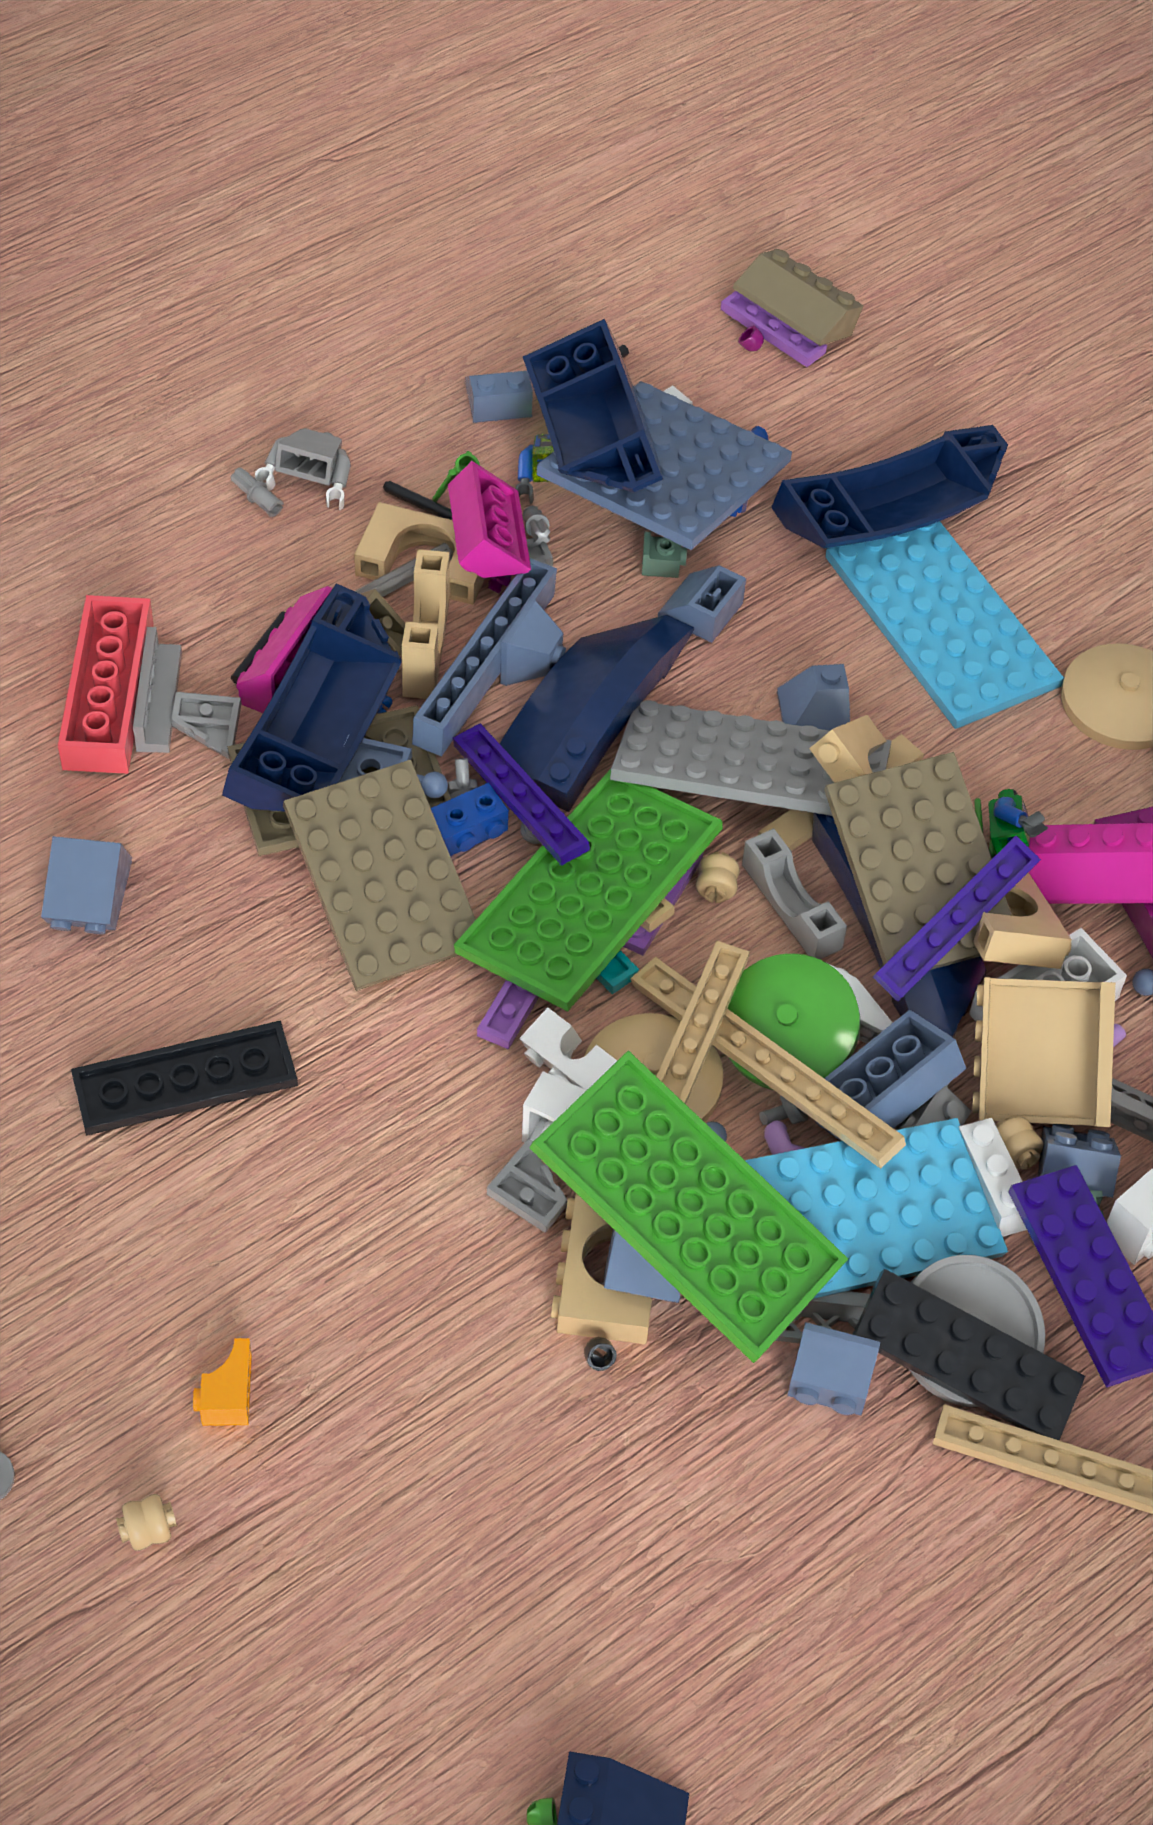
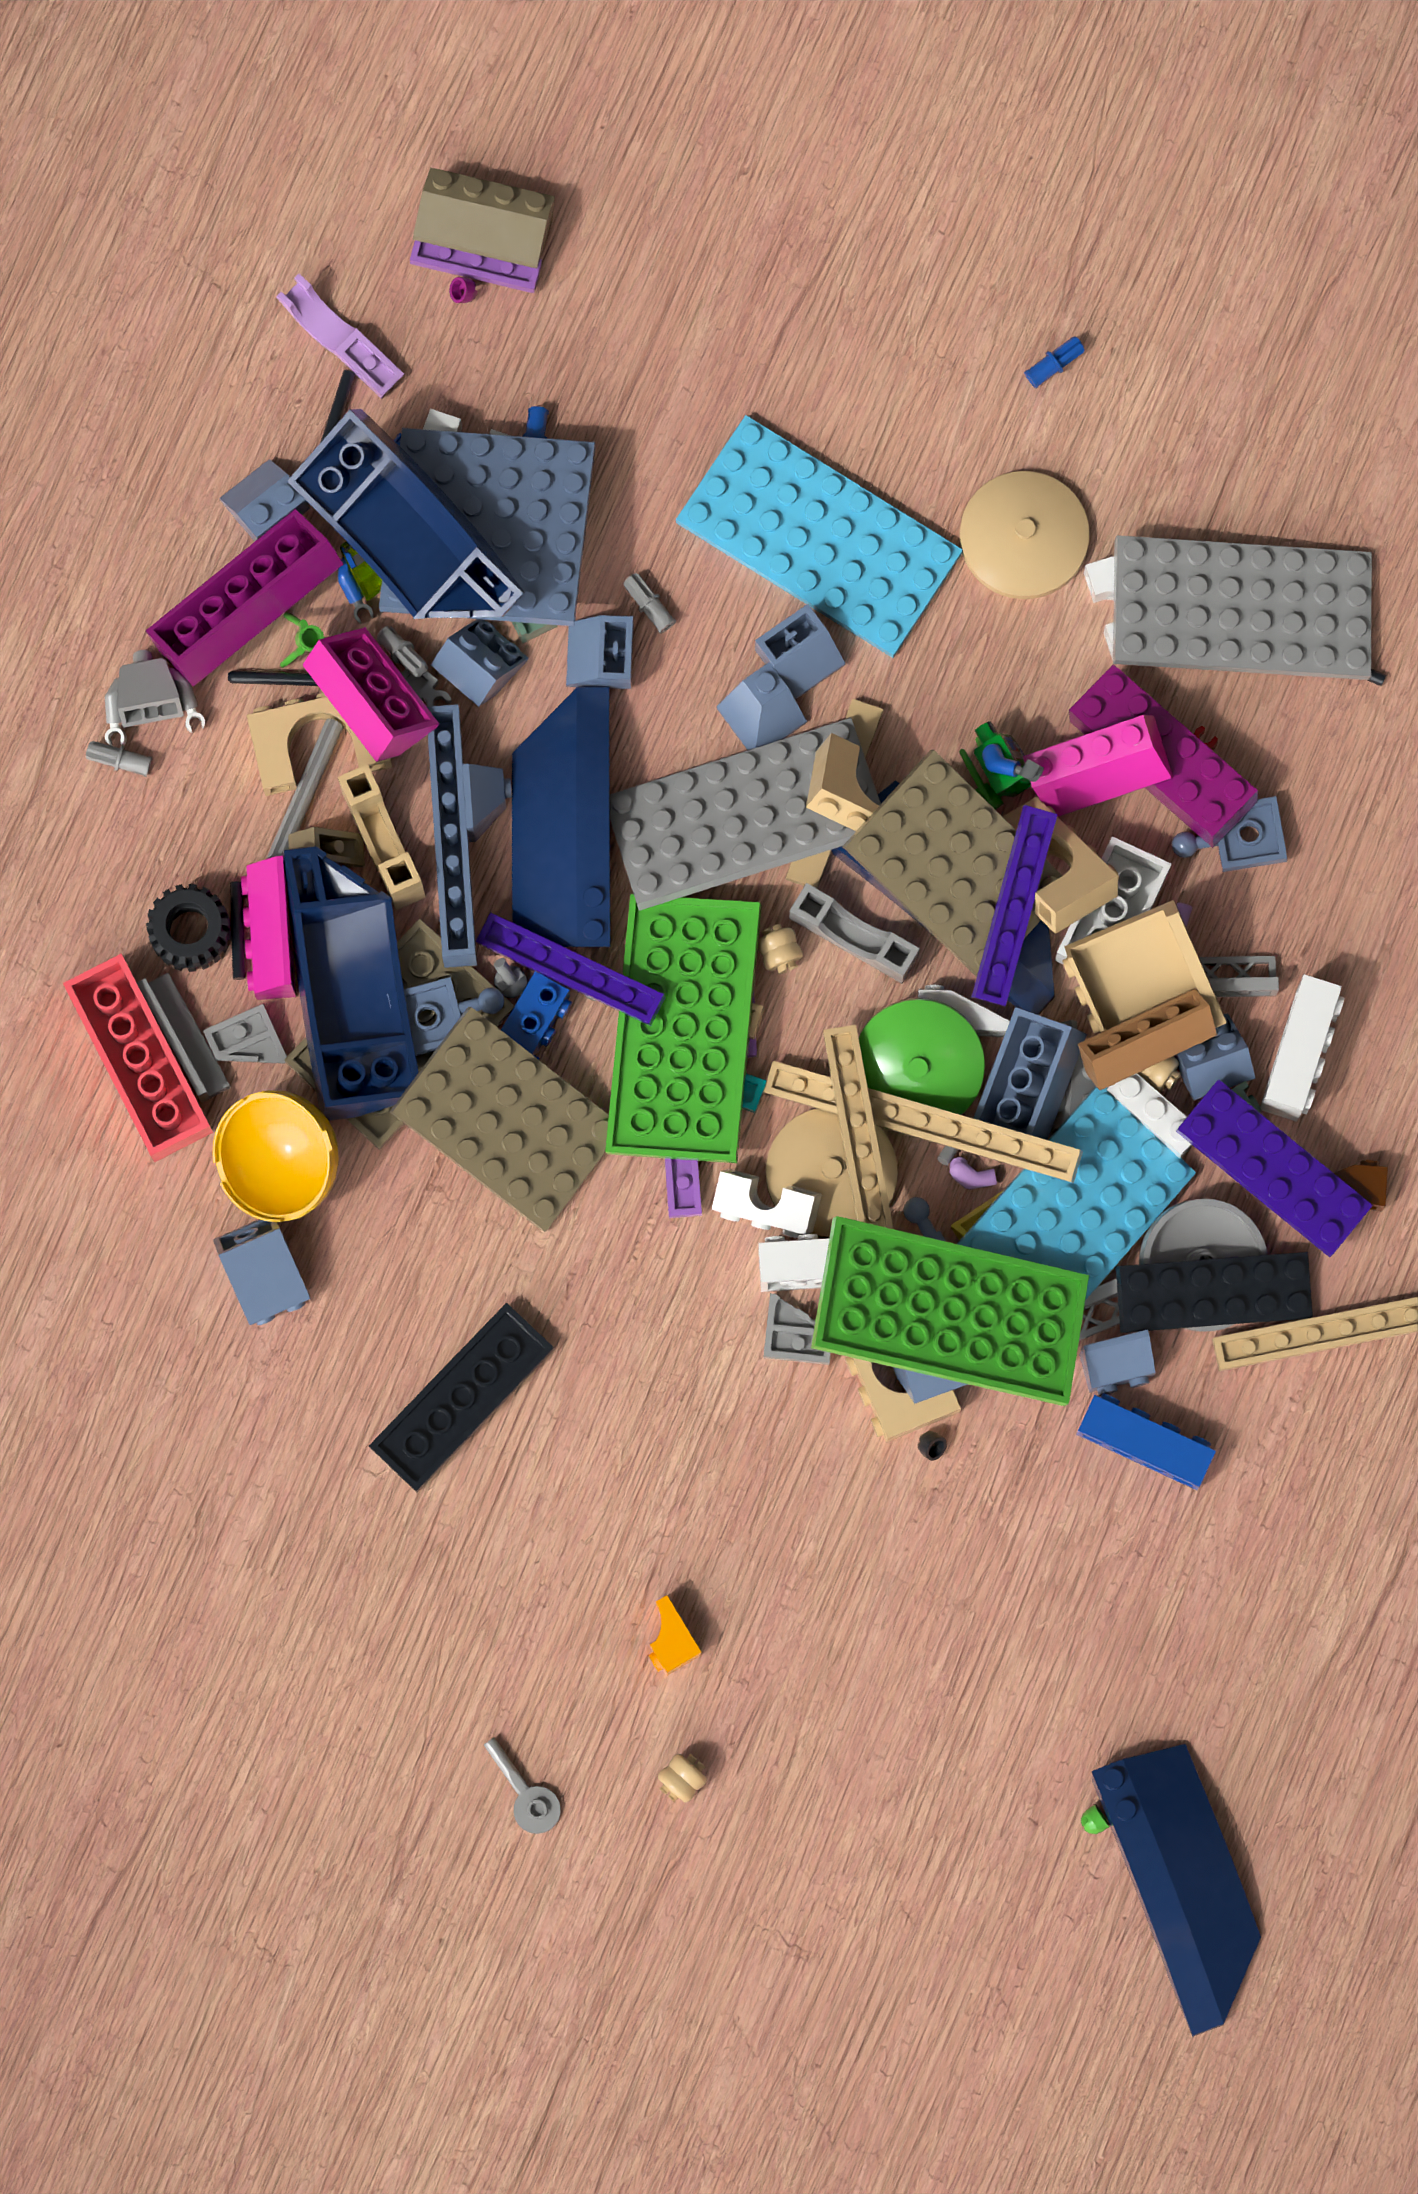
camera: 25 degrees left, 25 degrees up
(164, 795) = (275, 1155): none -> yellow piece
(216, 601) = (180, 902): none -> black tyre
(435, 430) = (244, 597): none -> magenta brick
(595, 561) = (479, 661): none -> sand blue slope
(626, 317) = (340, 337): none -> lavender piece
(767, 593) = (649, 603): none -> light grey axle
(819, 1463) = (1146, 1442): none -> blue brick
(877, 675) = (800, 651): none -> sand blue slope
(894, 492) = (709, 423): dark blue slope -> none
(1024, 1096) = (1141, 1043): none -> medium nougat brick

